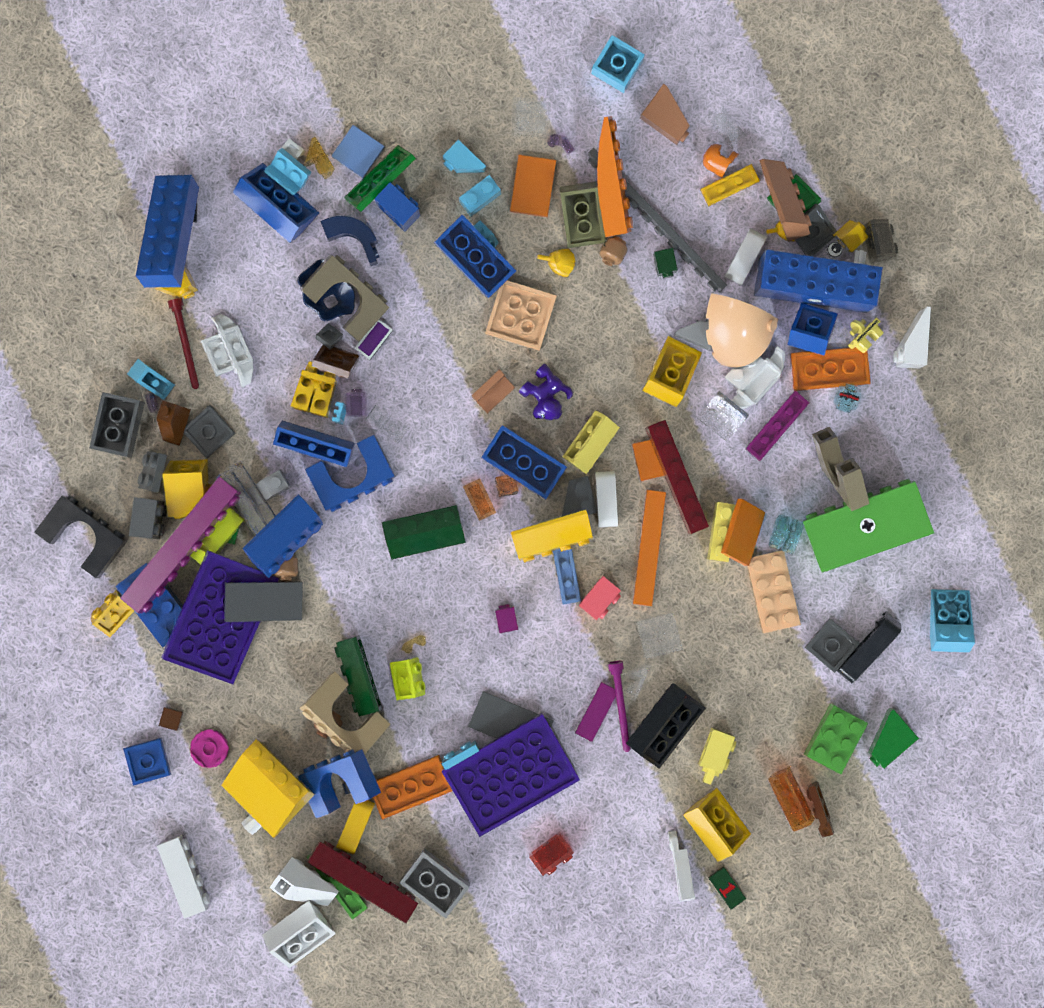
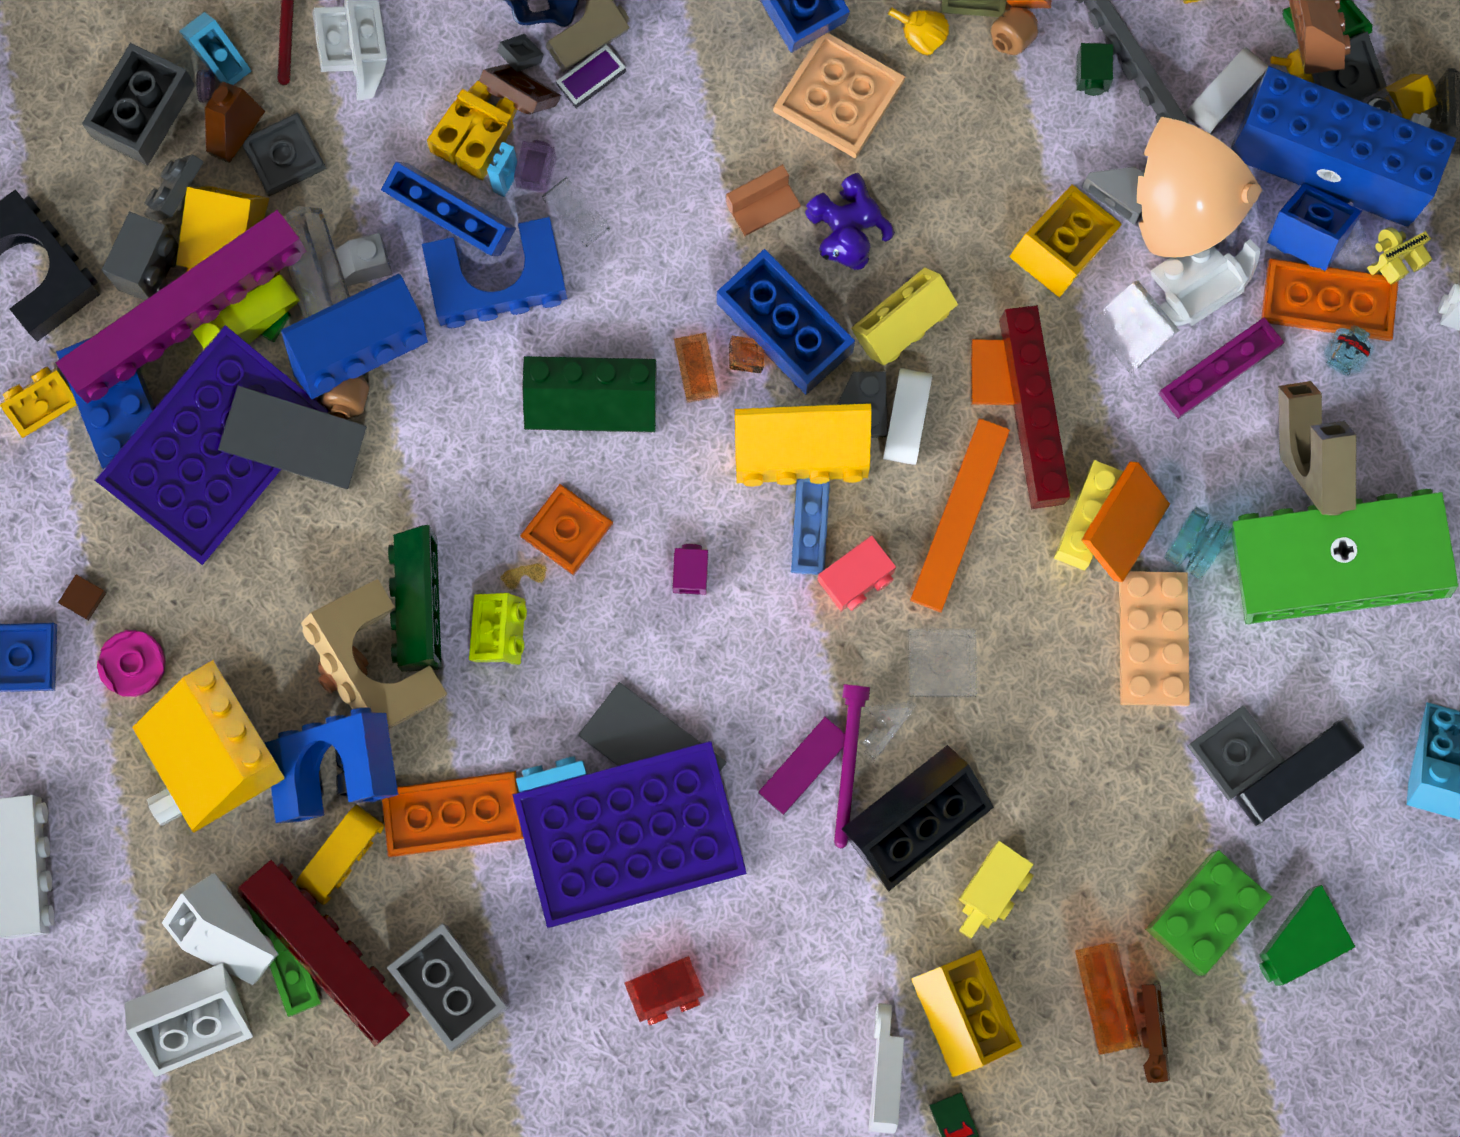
camera: 15 degrees right, 10 degrees down
(430, 611) = (566, 529): none -> orange tile

